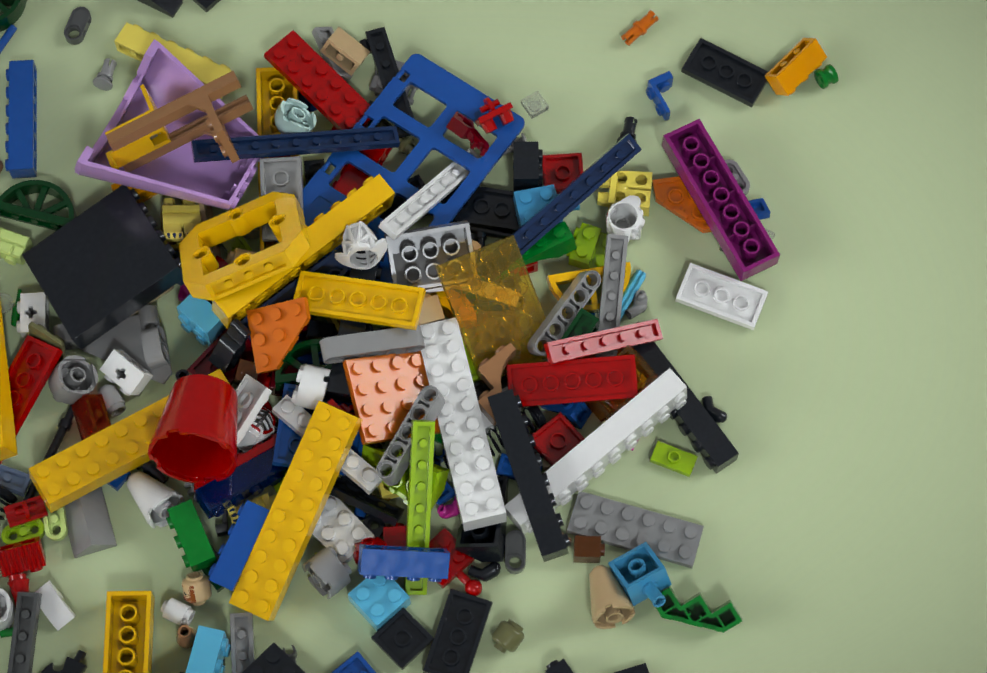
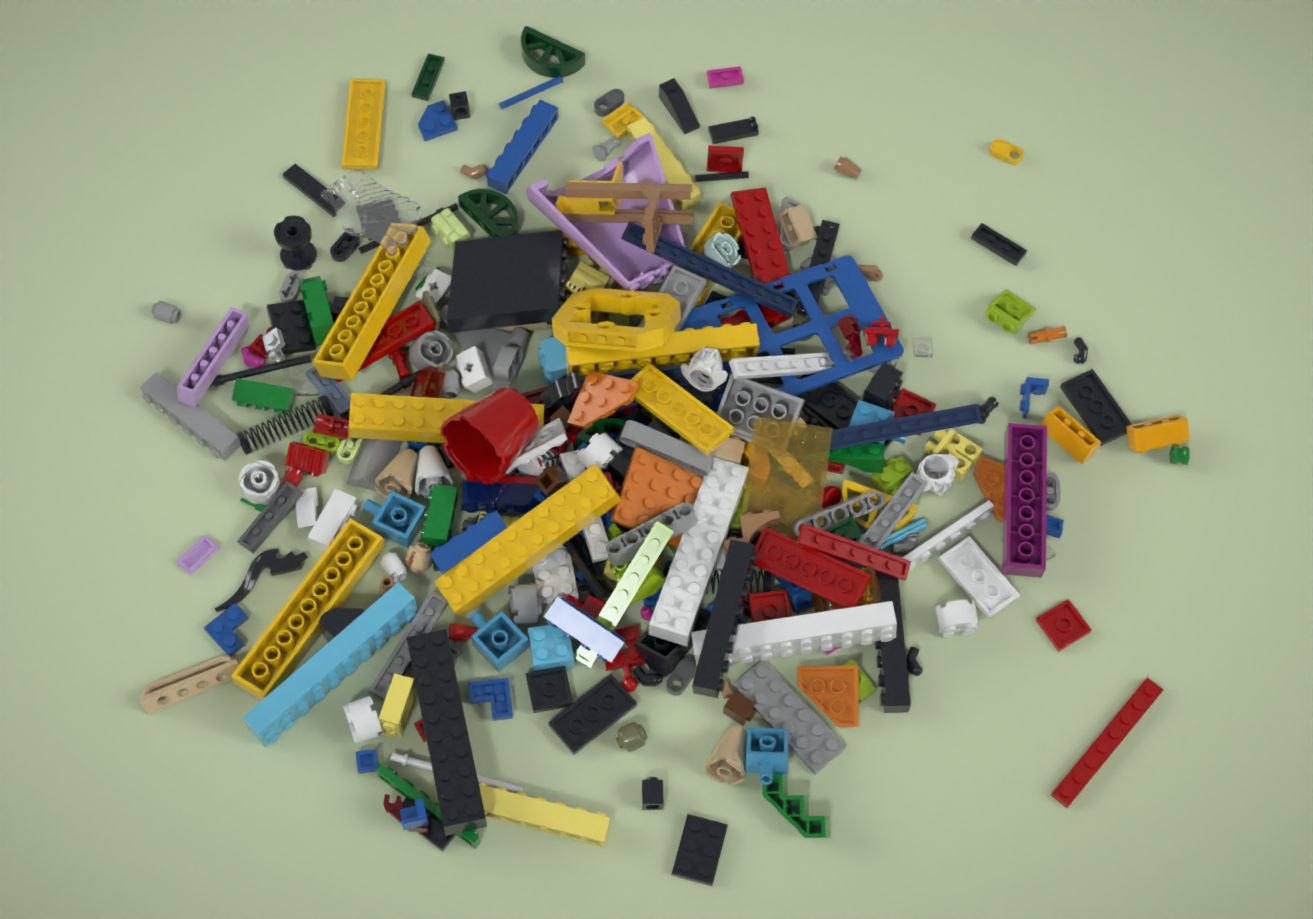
camera: 30 degrees right, 5 degrees down
(45, 406) = (399, 360): none -> red pin
(88, 603) = (332, 519): none -> white brick
(102, 37) = (620, 119): none -> yellow plate
(123, 521) = (398, 475): none -> tan cone
(150, 563) = (397, 518): none -> dark azure brick
(232, 22) = (724, 159): none -> red tile
(237, 40) = (722, 176): none -> black bar
(283, 439) = (552, 480): none -> reddish brown brick
(285, 634) = (460, 631): none -> red cone
(325, 621) = (498, 639): none -> dark azure brick
(441, 56) = (872, 271): none -> medium nougat arm
(545, 299) = (831, 496): none -> red brick
(592, 25) = (1009, 312): none -> lime plate
(661, 482) = (833, 691): none -> orange plate
(673, 268) = (952, 533): none -> white plate
(683, 31) = (1081, 357): none -> black arm
(720, 113) = (1070, 435): none -> light orange brick
(727, 346) = (957, 617): none -> white brick
(821, 296) = (1063, 625): none -> red tile
(924, 382) = (1106, 742): none -> red plate

